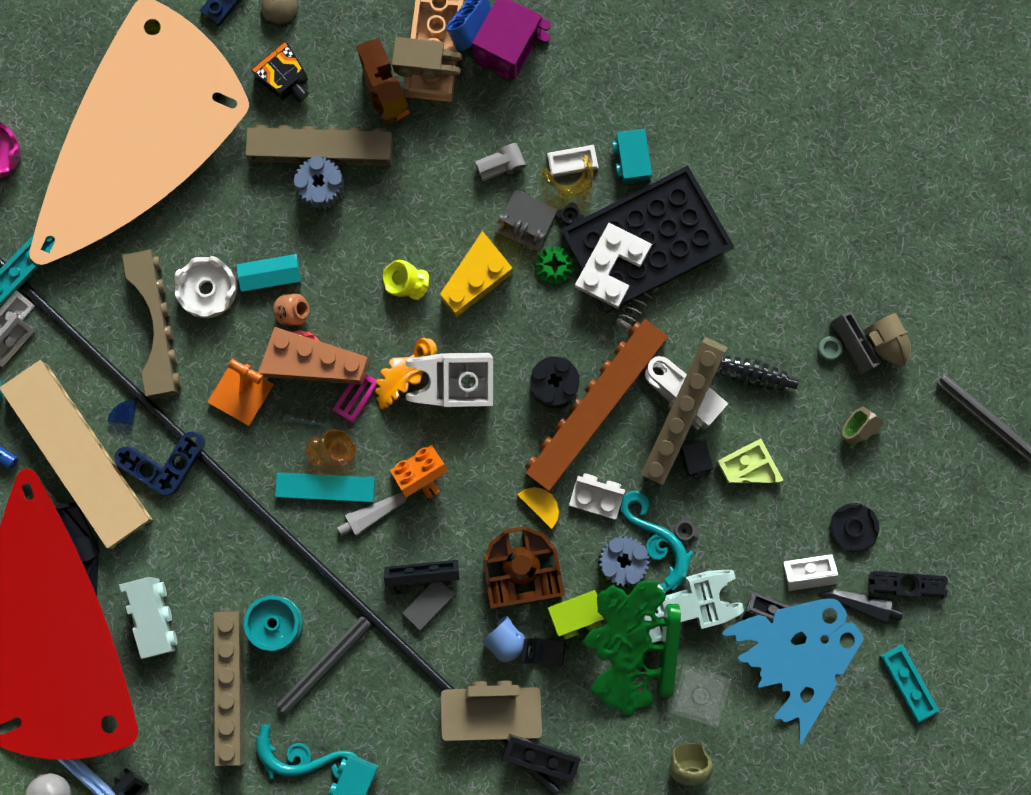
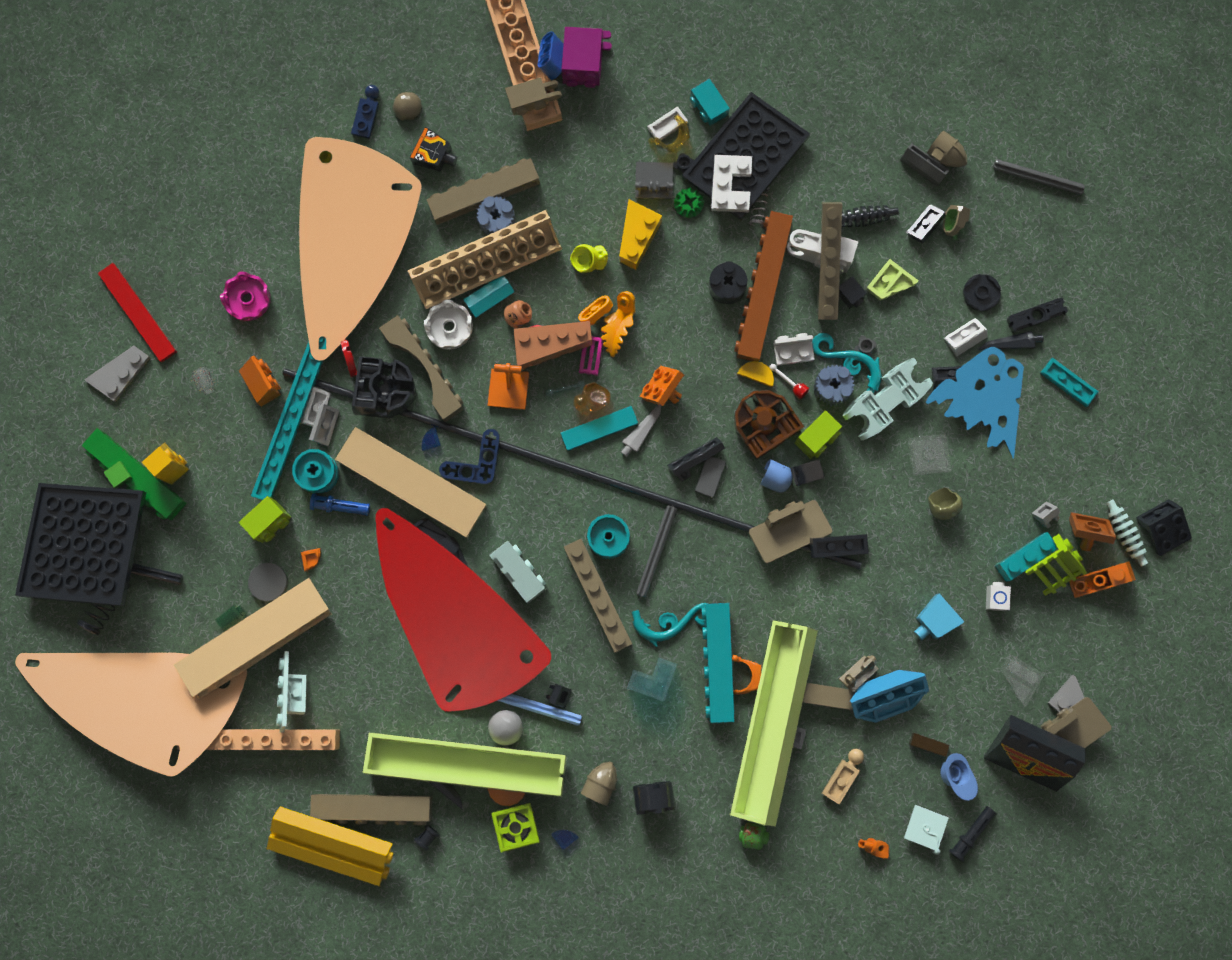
camera: 20 degrees left, 0 degrees up
(70, 275) = (349, 358): none -> red tile
(99, 336) = (397, 401): none -> black connector
(282, 229) = (485, 259): none -> tan tile
(382, 86) = (516, 133): reddish brown connector -> none
(385, 345) = (596, 310): none -> light orange plate
(446, 382) = (651, 312): white brick -> none
(505, 161) = (620, 144): light grey piece -> none
(581, 547) = (799, 389): none -> hinge
(627, 640) = (863, 435): green plant -> none
(824, 415) = (926, 224): none -> plate
(830, 348) = (908, 176): sand green tile -> none

